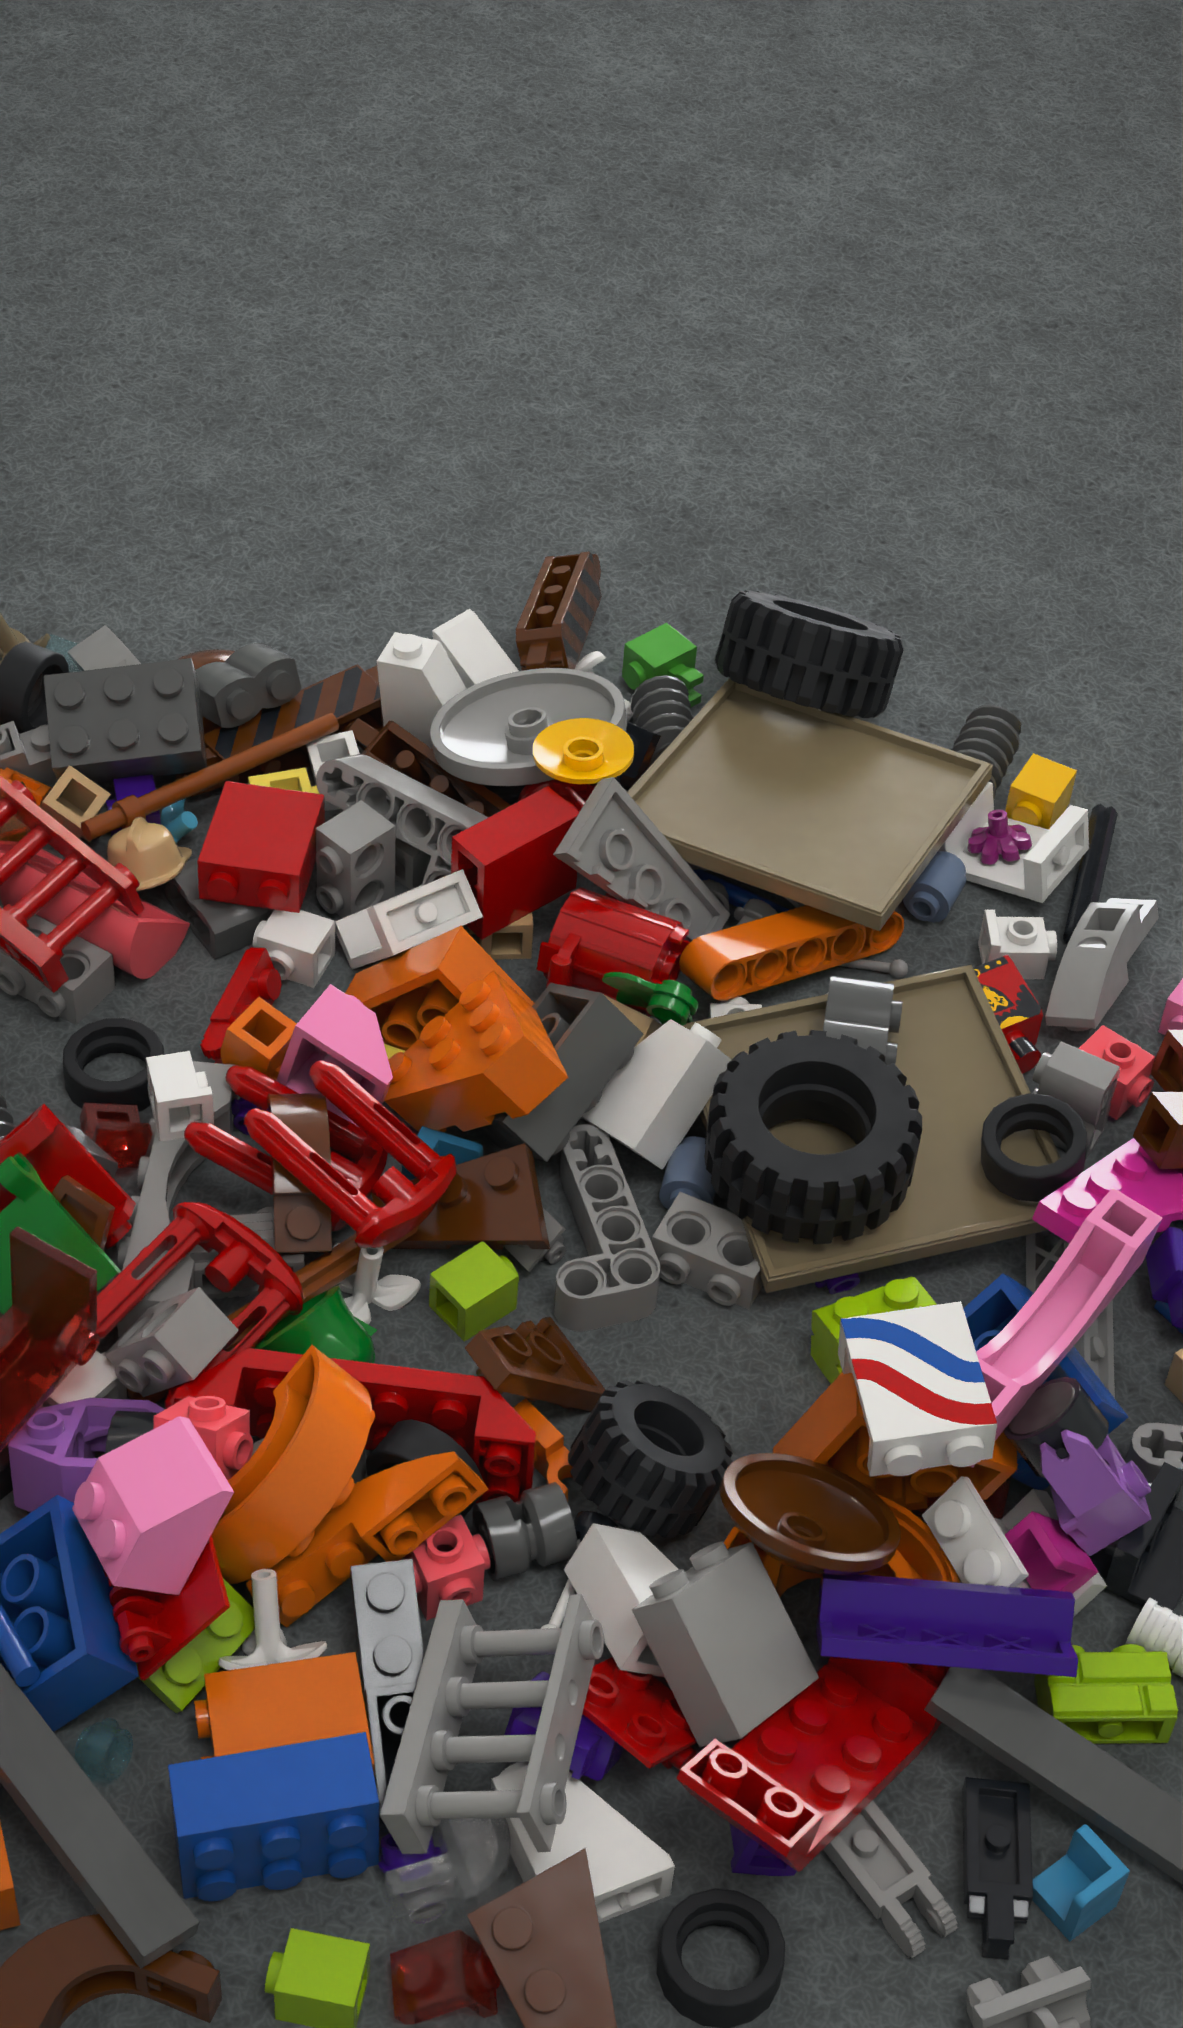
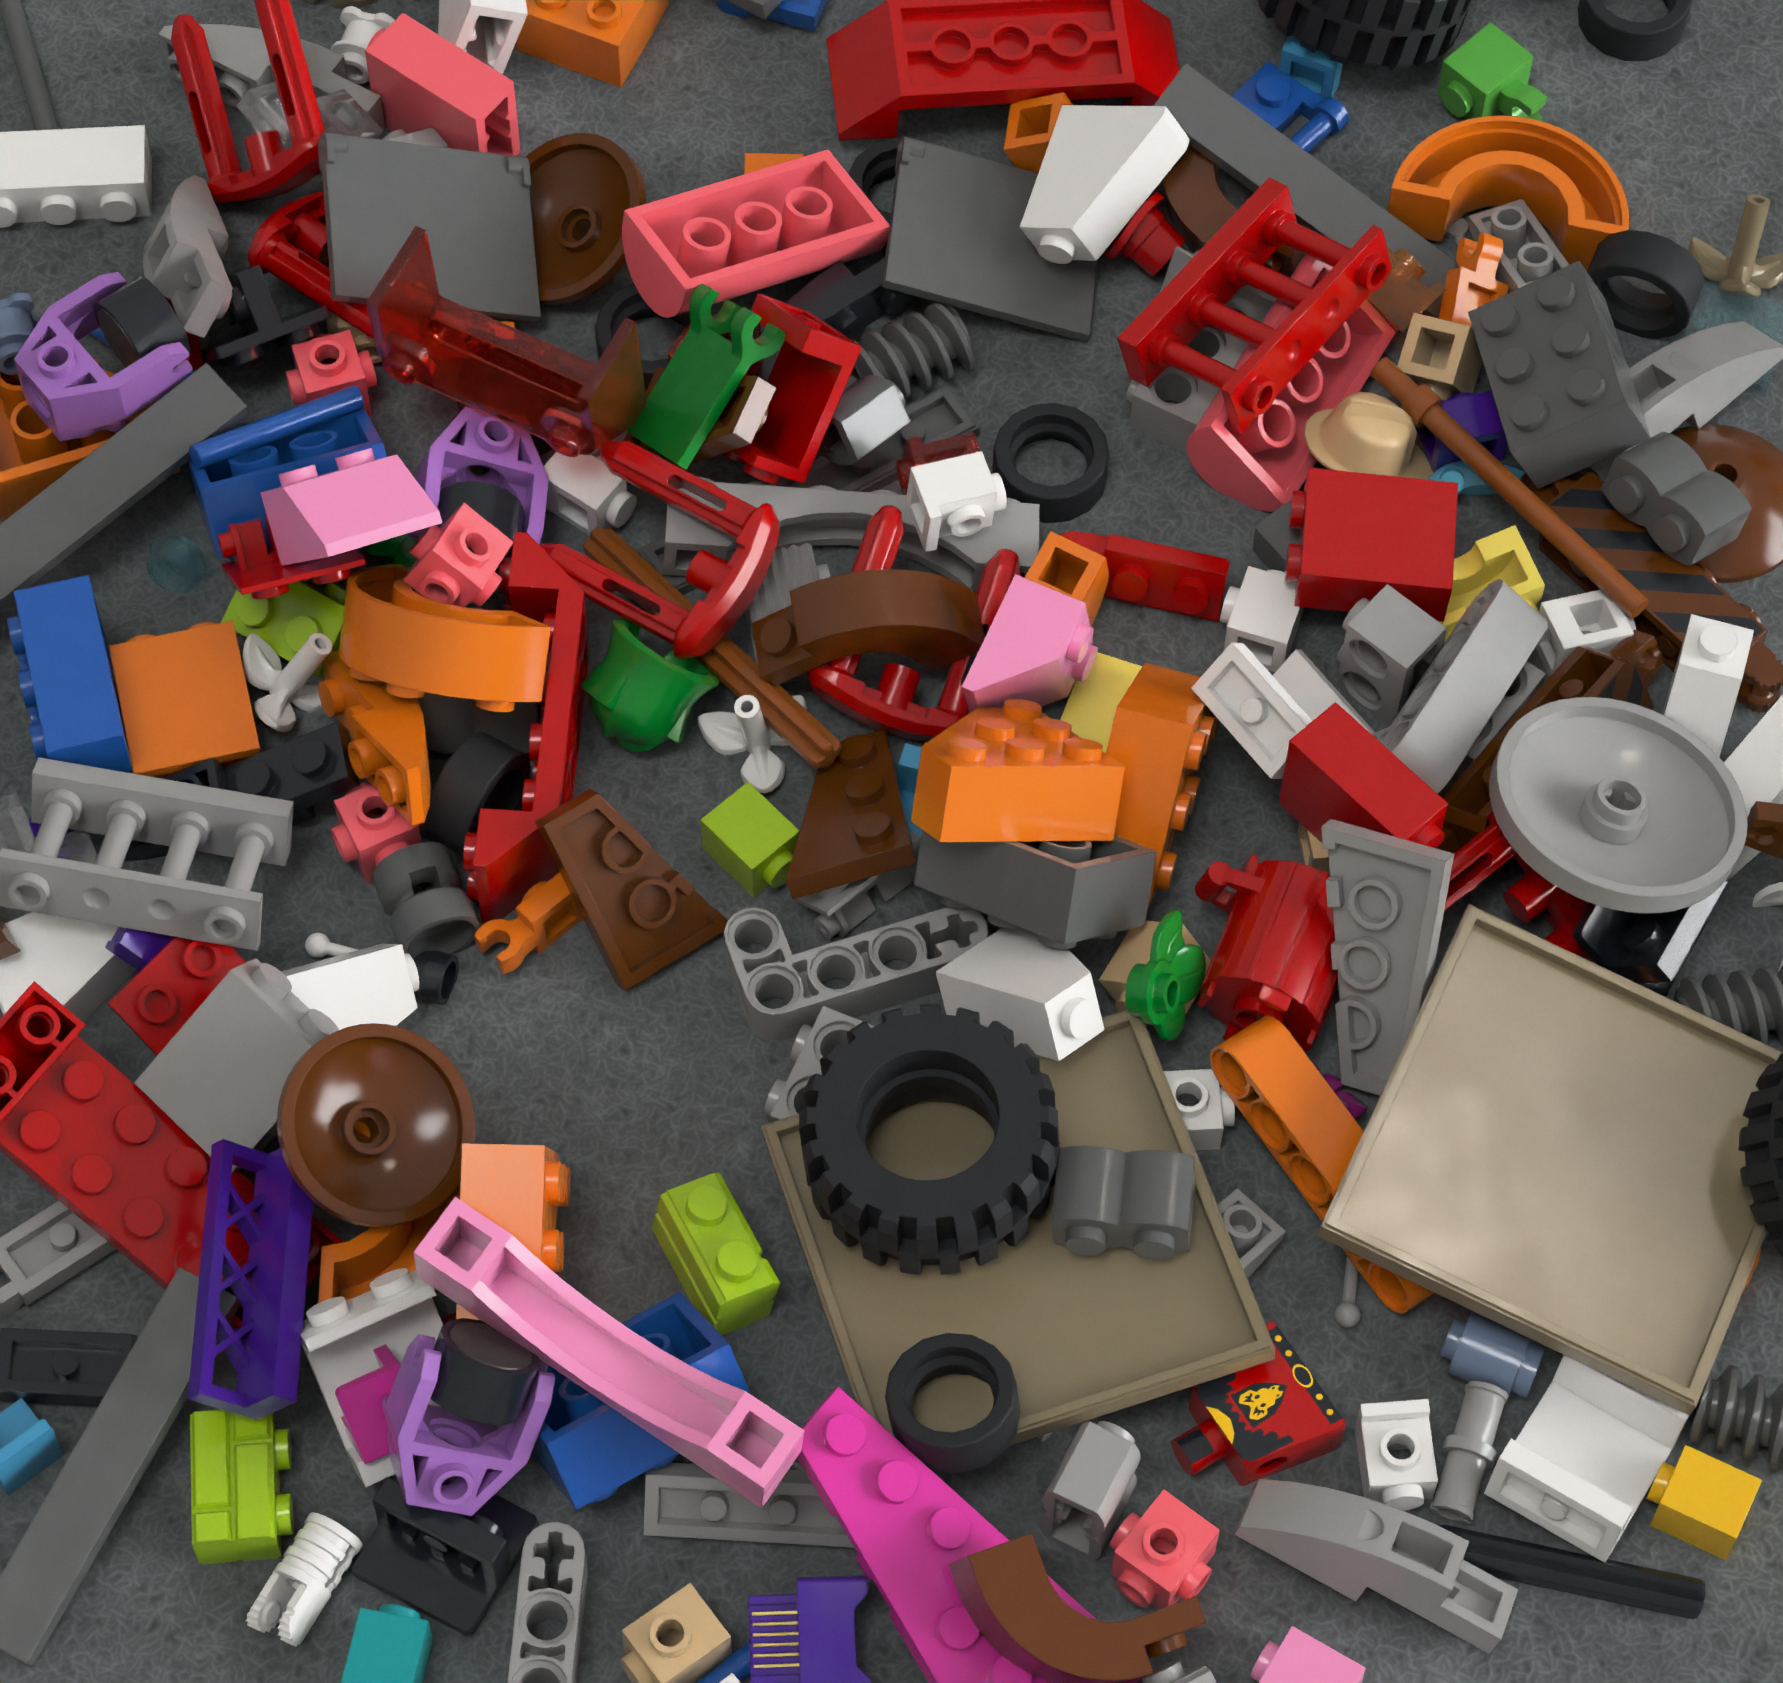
camera: 90 degrees right, 15 degrees up
(170, 1343) = (594, 526): light grey brick -> none
(404, 1202) = (807, 726): red piece -> none
(583, 750) = (1514, 814): yellow dish -> none
(649, 1458) = (555, 994): black tyre -> none
(919, 1388) = (465, 1177): panel -> none
(977, 899) = (1469, 1452): none -> light grey pin
(999, 839) = (1597, 1440): magenta plant -> none

